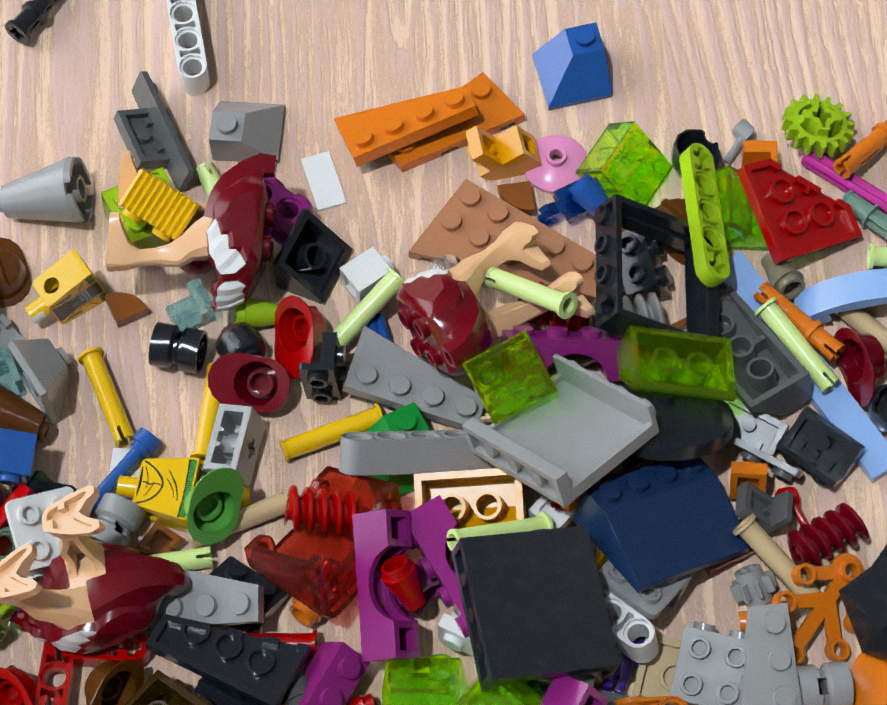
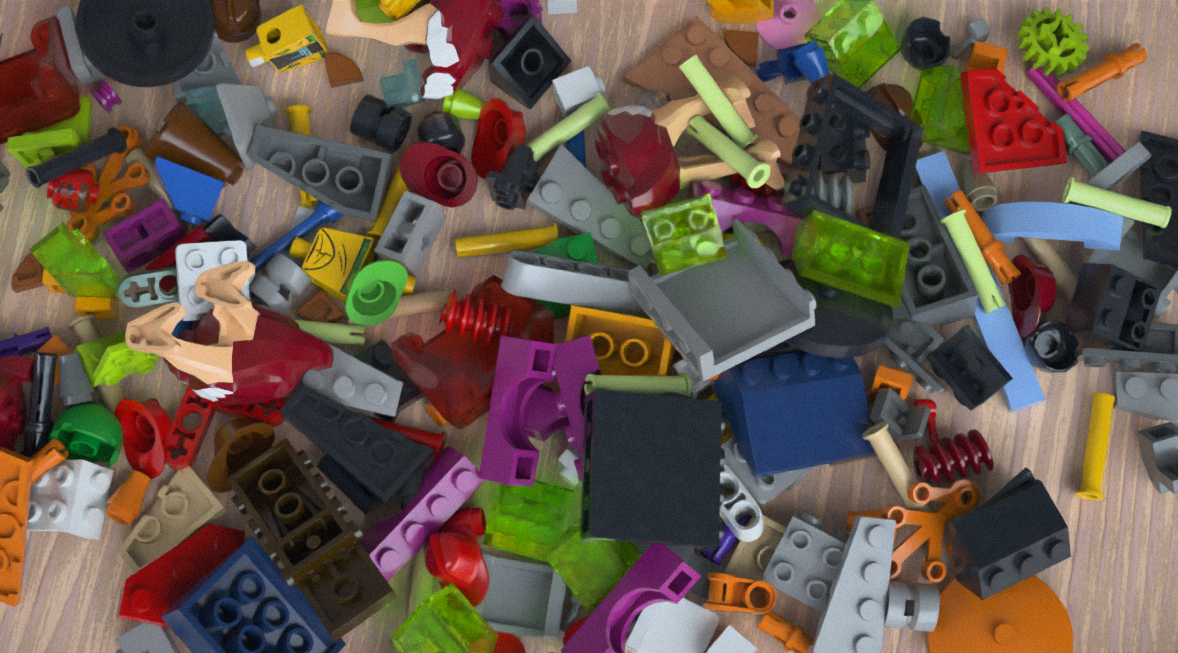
camera: 10 degrees right, 10 degrees up
(143, 403) = (335, 173): none -> dark grey wedge
(402, 579) = (534, 410): red cone -> none
(508, 248) = (717, 102): none -> yellowish green pin
(709, 262) = (912, 161): lime beam -> none
(753, 585) = (869, 490): light grey gear -> none

